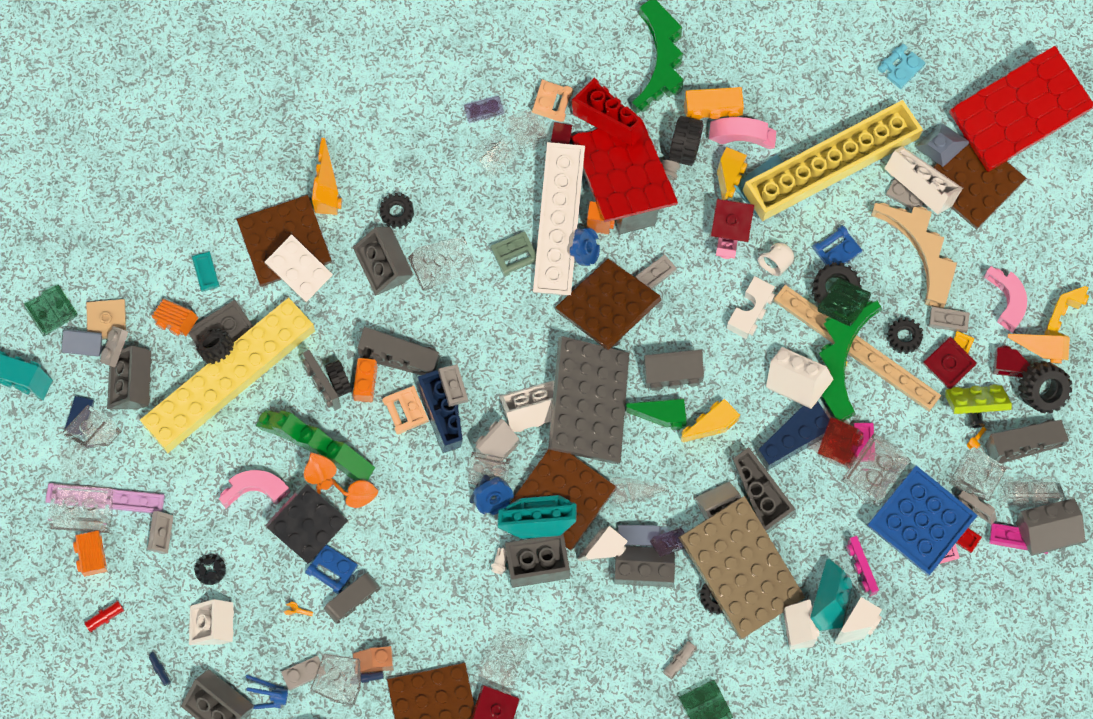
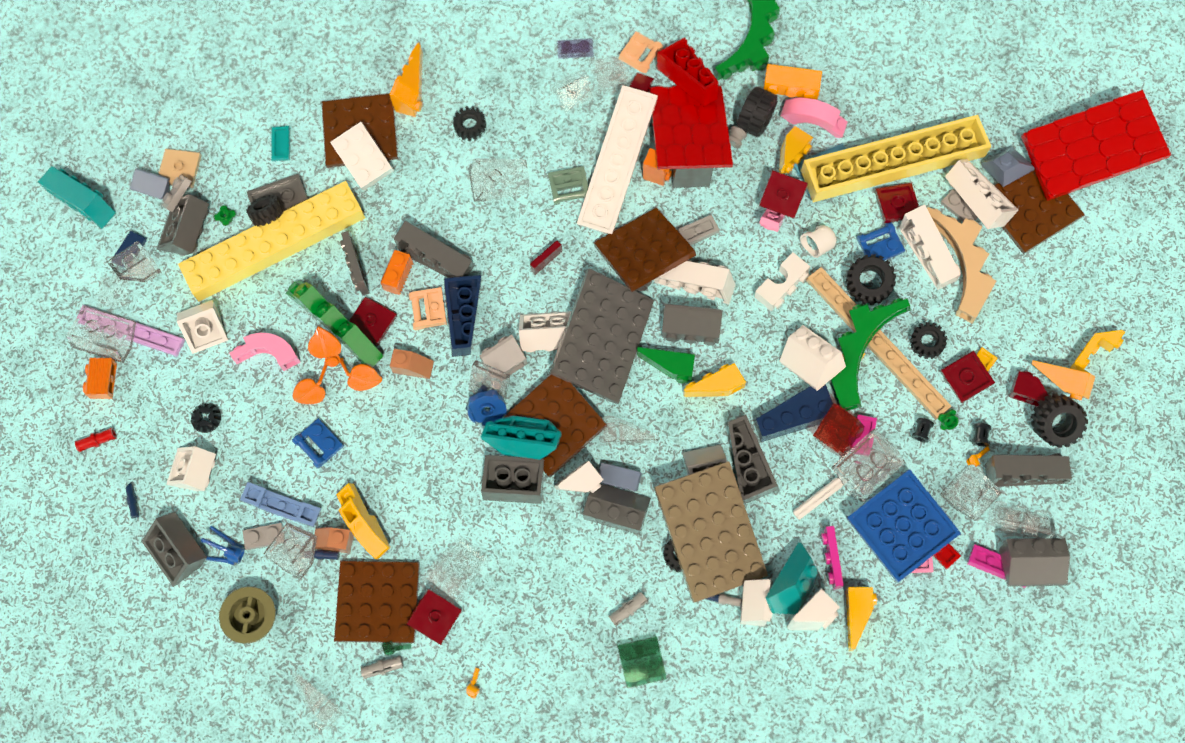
camera: 20 degrees right, 0 degrees up
(50, 310) = (132, 149): clear green slope -> none
(160, 532) = (169, 373): light grey plate -> none
(174, 317) = (238, 178): orange brick -> none
(174, 359) = (230, 214): none -> green plate
(180, 478) = (202, 326): none -> white slope
(295, 609) = (274, 474): light orange hand -> none
(306, 523) = (302, 393): black plate -> none
(312, 639) = (280, 505): none -> medium blue slope
(338, 378) = (371, 265): black tyre -> none
(351, 597) = (328, 474): dark grey beam -> none
(353, 432) = (373, 320): none -> dark red plate
(382, 260) = (444, 165): dark grey slope -> none
(398, 637) = (361, 524): none -> yellow slope
(405, 469) = (411, 364): none -> nougat slope
(453, 385) = (474, 293): light grey plate -> none
(500, 561) = (477, 473): white pin -> none
(511, 332) = (546, 257): none -> dark red tile
(585, 247) = (634, 183): blue plate -> none
(668, 542) = (643, 490): clear purple plate -> none
(669, 321) = (701, 278): none -> white wedge
(768, 630) = (724, 599): none -> light grey piece
(834, 513) = (817, 498): none -> white axle
(844, 204) = (896, 201): none -> dark red plate
(844, 302) = (874, 294): clear green slope -> none
(885, 243) = (929, 247): none -> white wedge
(898, 609) = (859, 605): none -> yellow slope
(905, 70) = (988, 89): medium azure plate -> none
(916, 430) = (919, 435): none -> black bush
(941, 409) = (948, 420): none -> green plate
(949, 319) = (976, 334): light grey plate -> none
(978, 399) = (988, 418): lime plate -> none
(983, 510) = (967, 529): light grey plate -> none
(1015, 296) = (1048, 325): bright pink arch -> none

